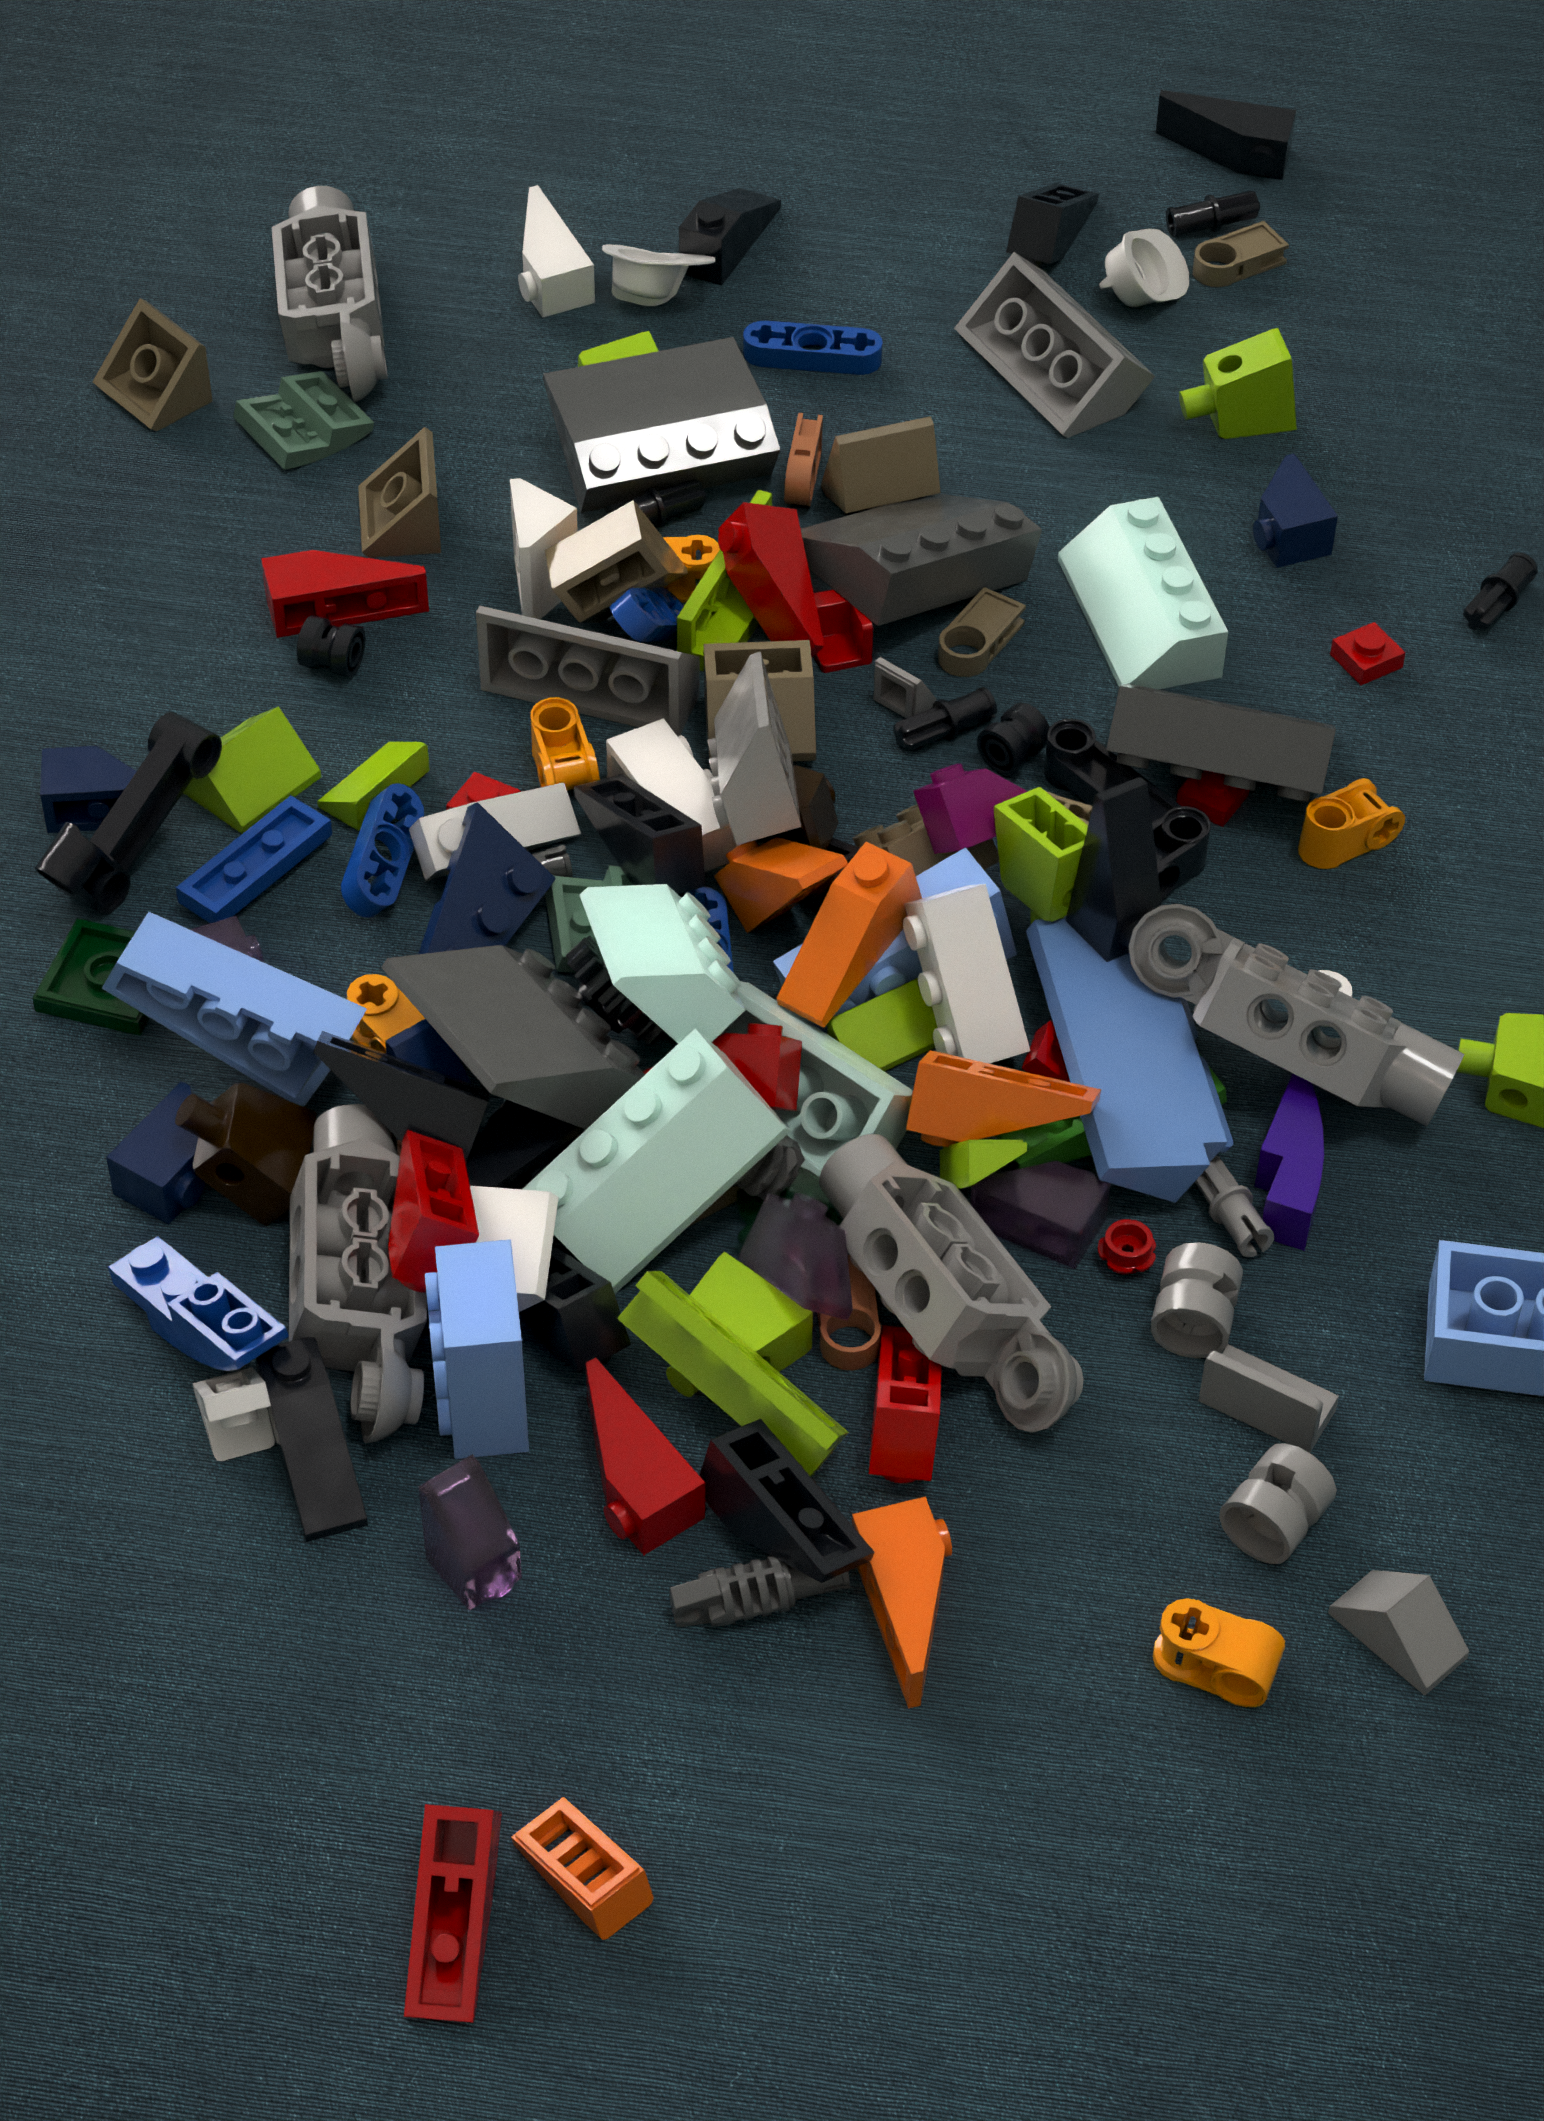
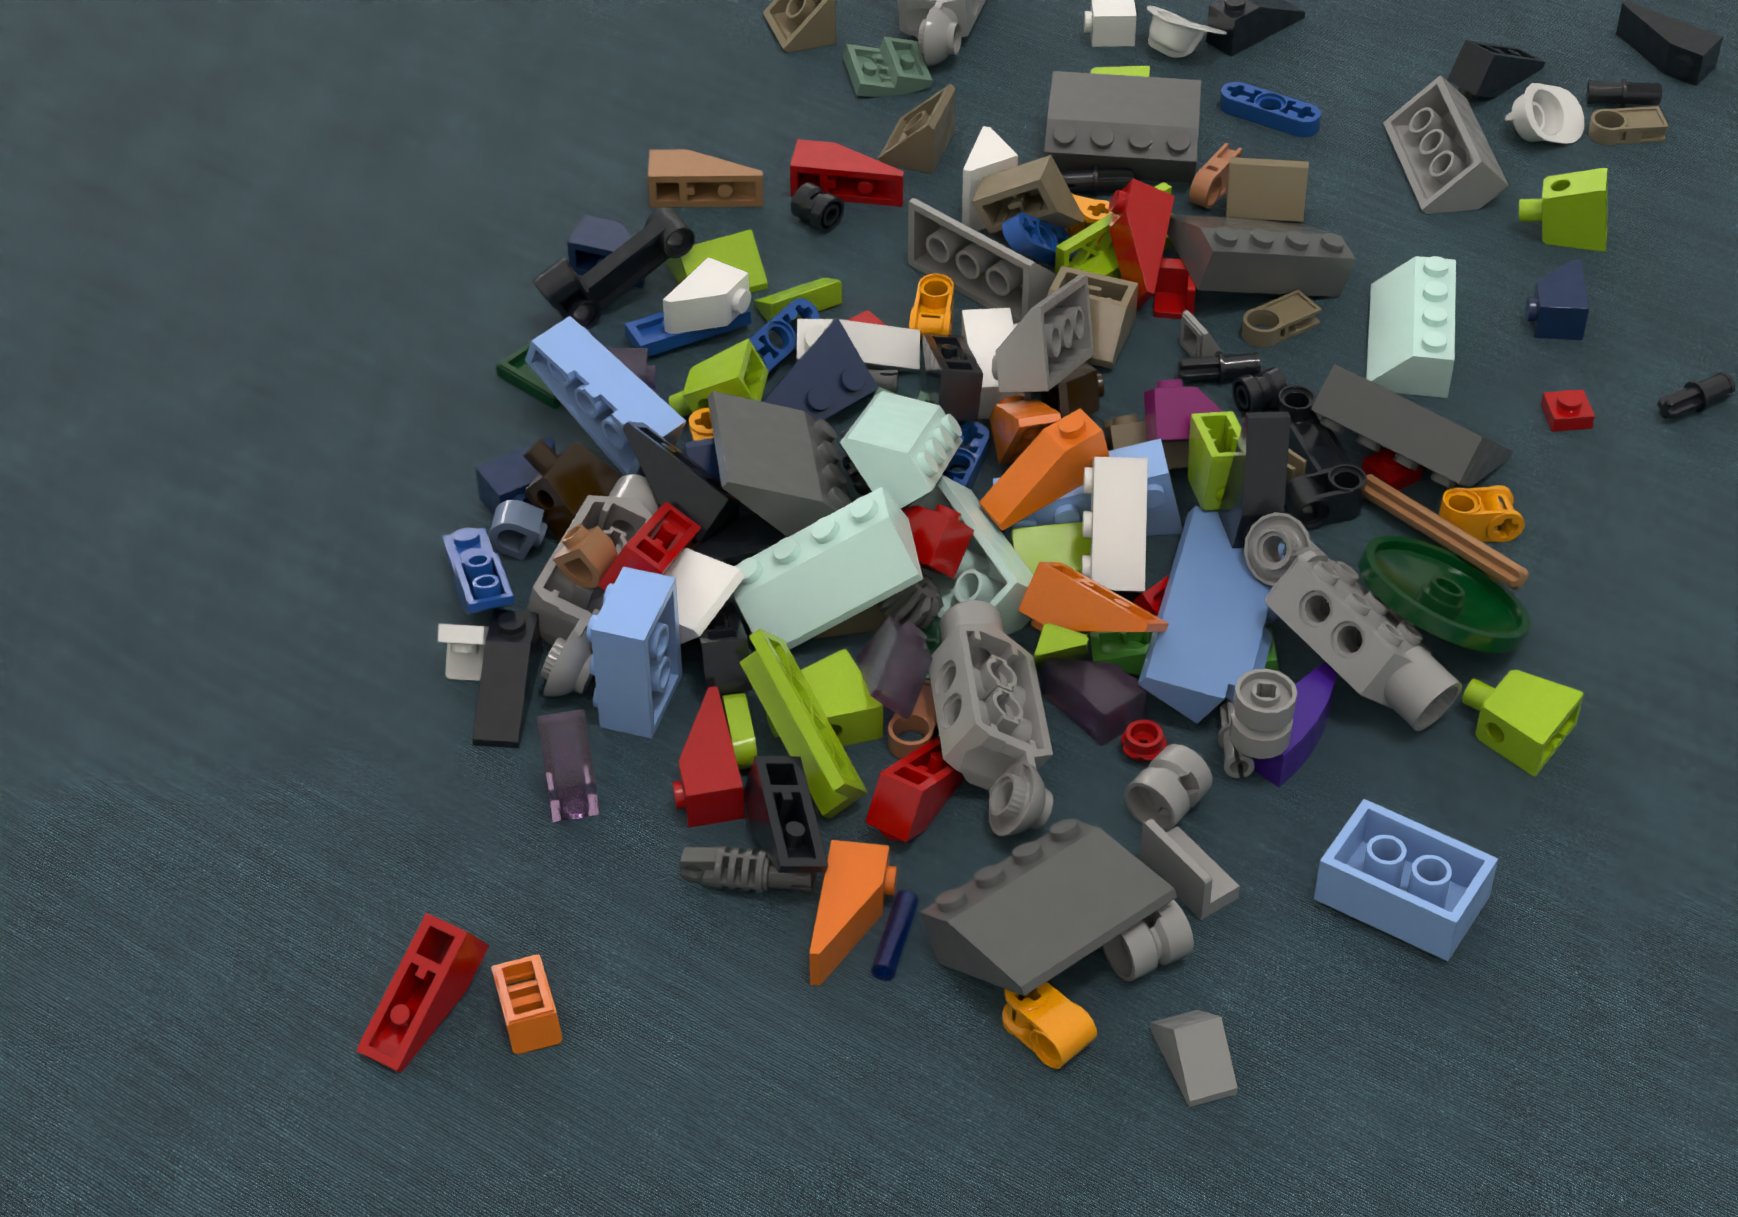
camera: 25 degrees right, 5 degrees down
(153, 652) = (701, 180): none -> medium nougat slope
(203, 1222) = (517, 528): none -> sand blue plate
(277, 820) = (707, 298): none -> white slope
(357, 1243) = (585, 555): none -> medium nougat plate
(359, 933) = (733, 372): none -> lime torso
(650, 1398) = (740, 729): none -> lime beam
(978, 1607) = (895, 935): none -> clear blue piece
(1155, 1513) = (1043, 907): none -> dark grey slope
(1276, 1171) = (1263, 713): none -> light grey wheel
(1329, 861) = (1445, 533): none -> medium nougat axle
(1377, 943) = (1444, 594): none -> dark green dish

